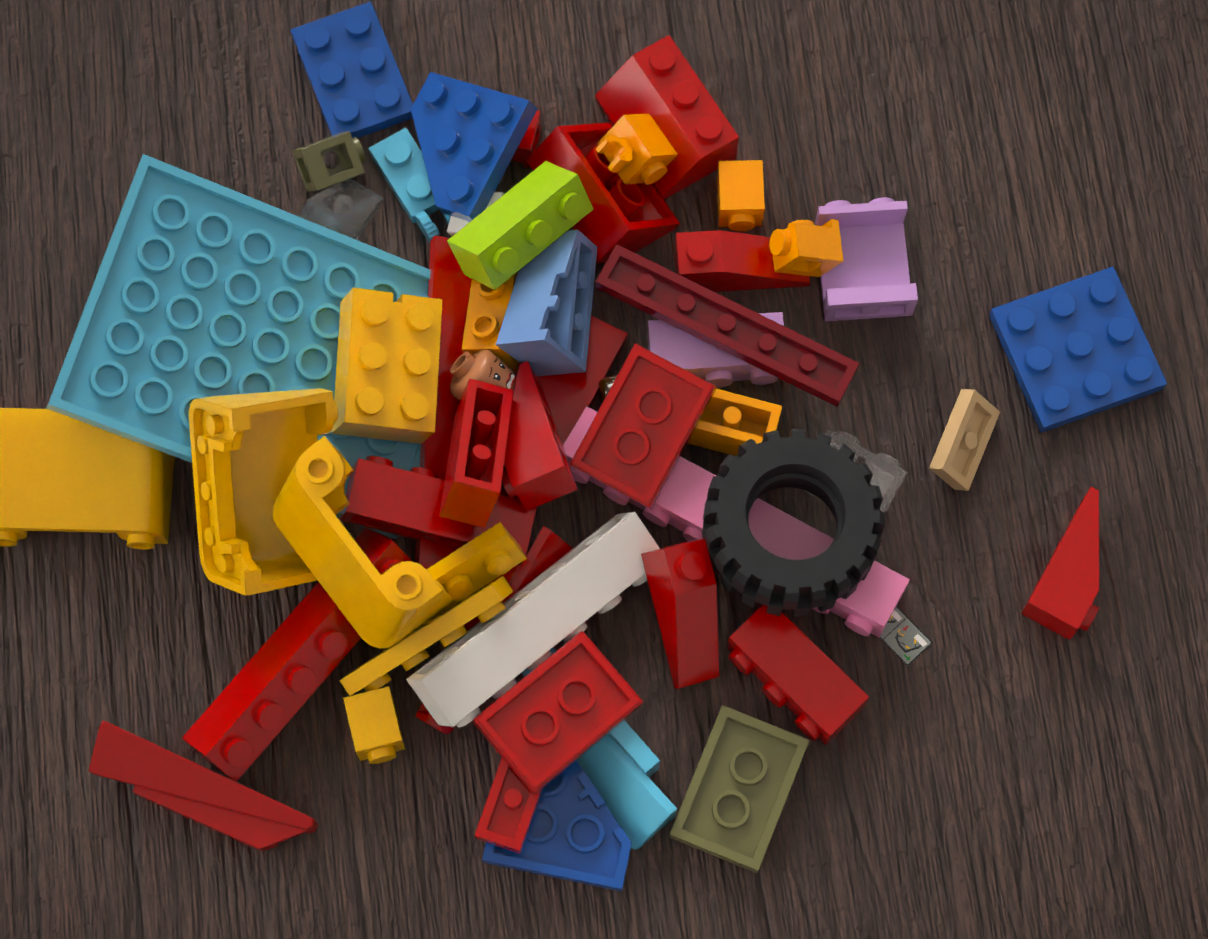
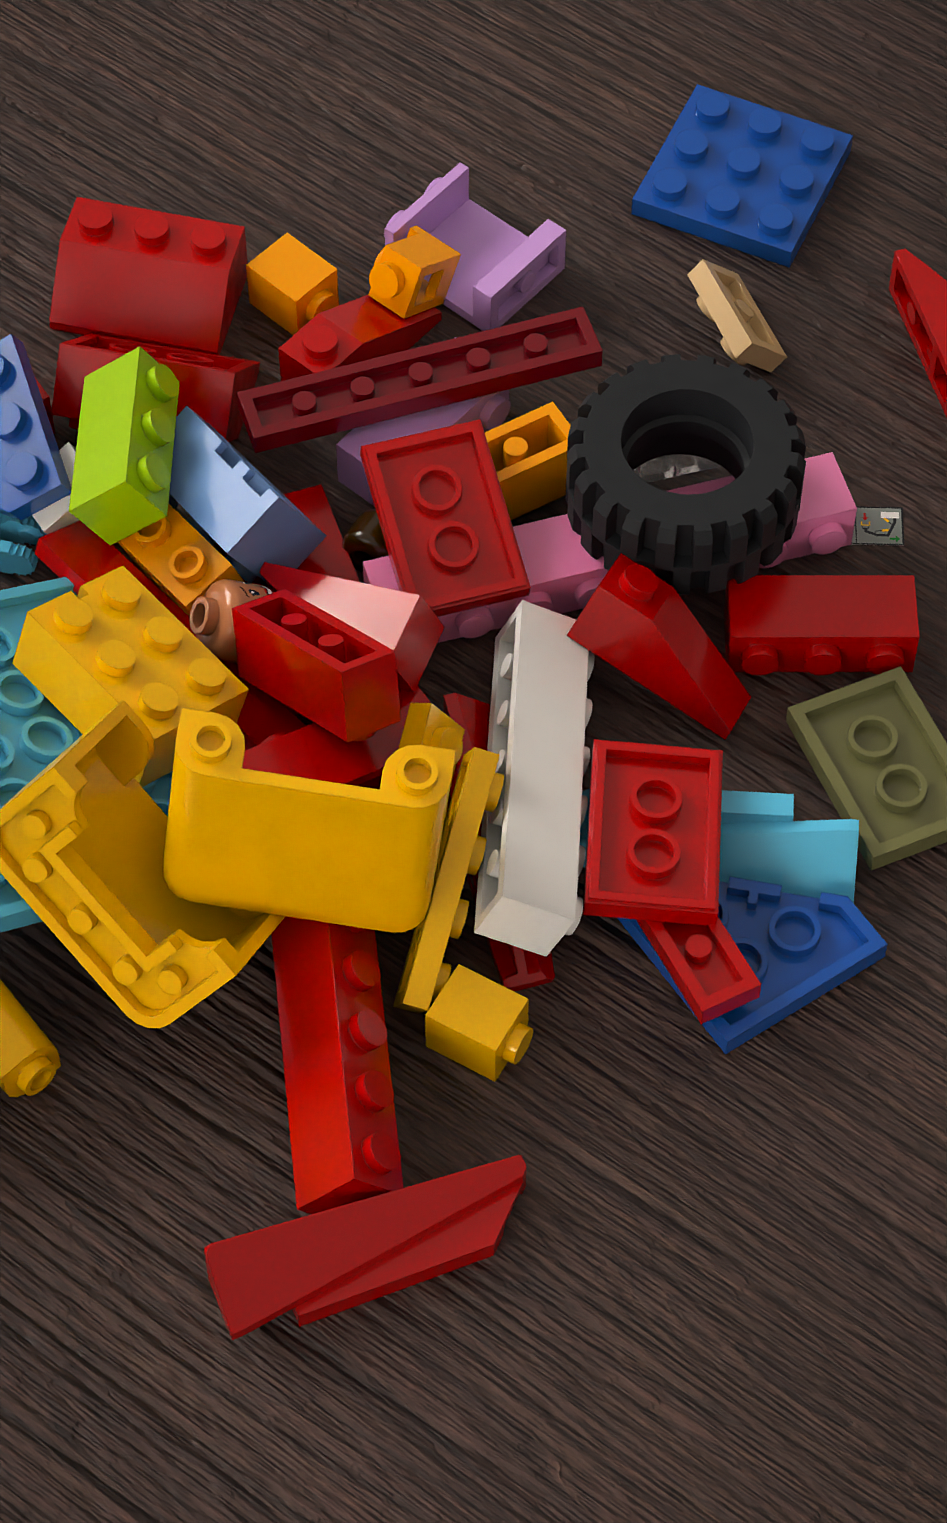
camera: 45 degrees left, 15 degrees down
(637, 149) = (155, 318): light orange brick -> none

